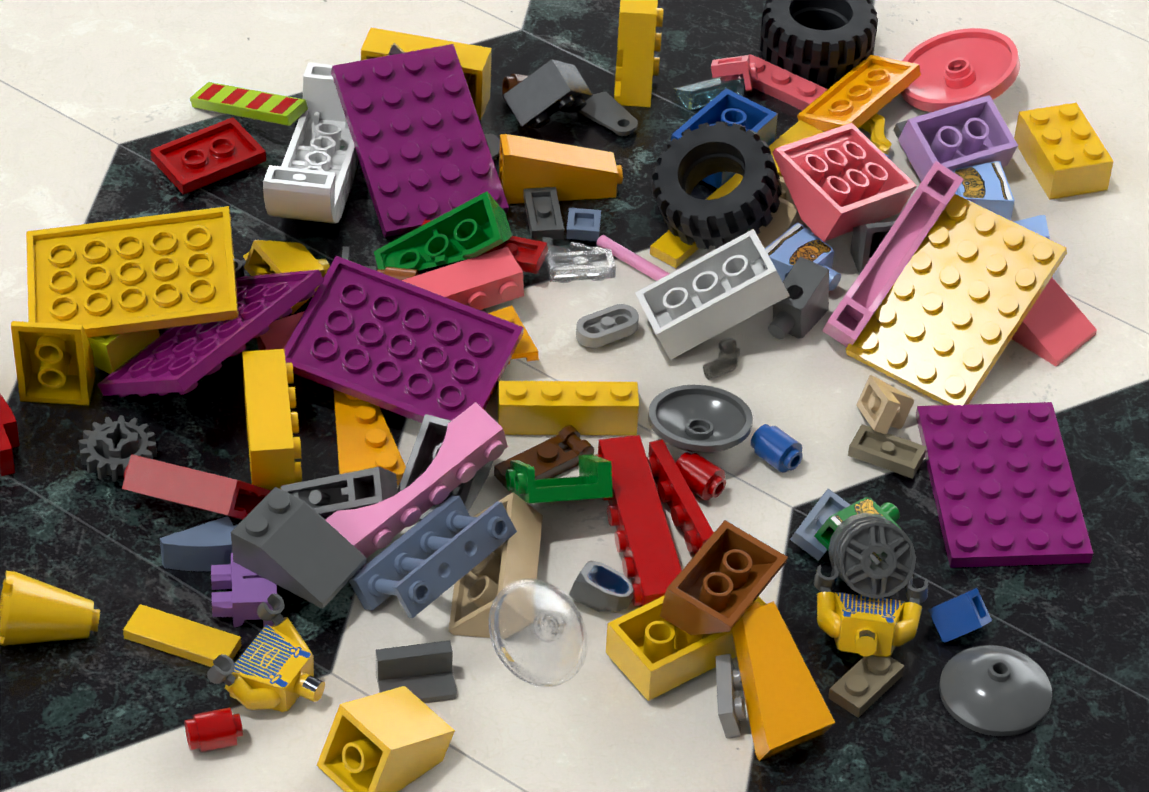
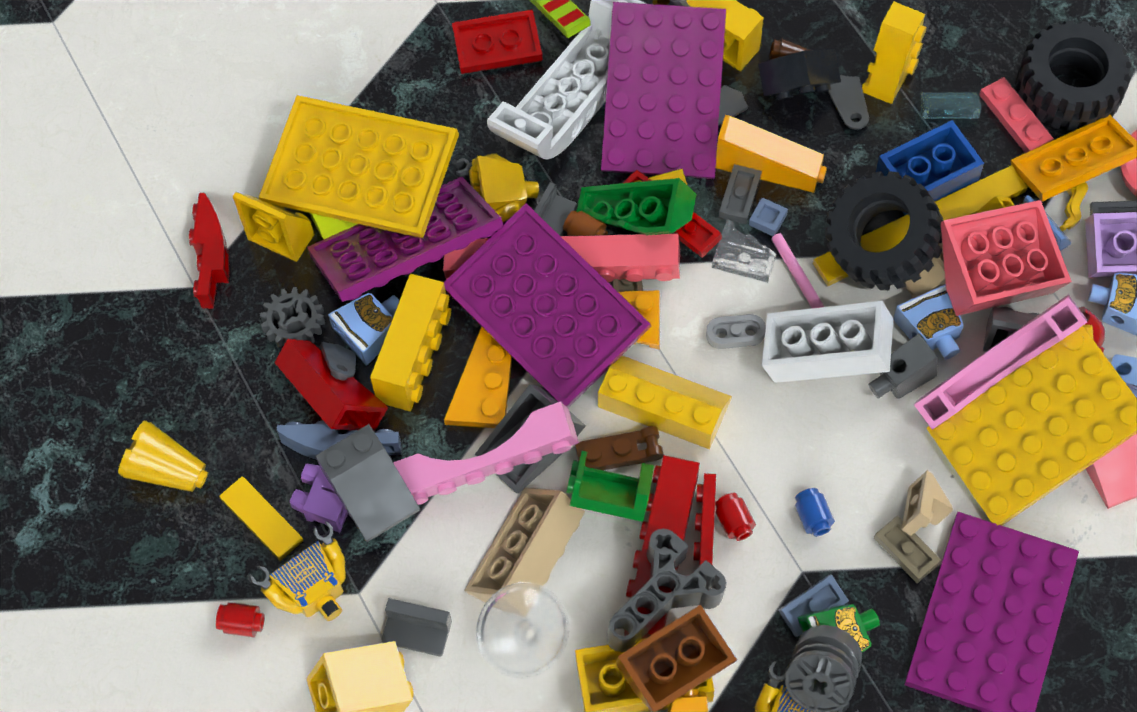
camera: 30 degrees right, 20 degrees up
(201, 465) = (339, 360): none -> dark grey piece
(204, 431) = (364, 324): none -> light blue torso
(345, 490) = (439, 431): dark grey slope -> none
(432, 556) = (467, 509): sand blue fence -> none
(602, 588) = (597, 601): dark grey rock -> none
(670, 537) = (665, 554): none -> dark grey beam
(700, 418) = (761, 449): dark grey dish -> none
(726, 362) = (820, 402): clear smoke arm -> none
(730, 67) = (976, 93): coral bracket -> none

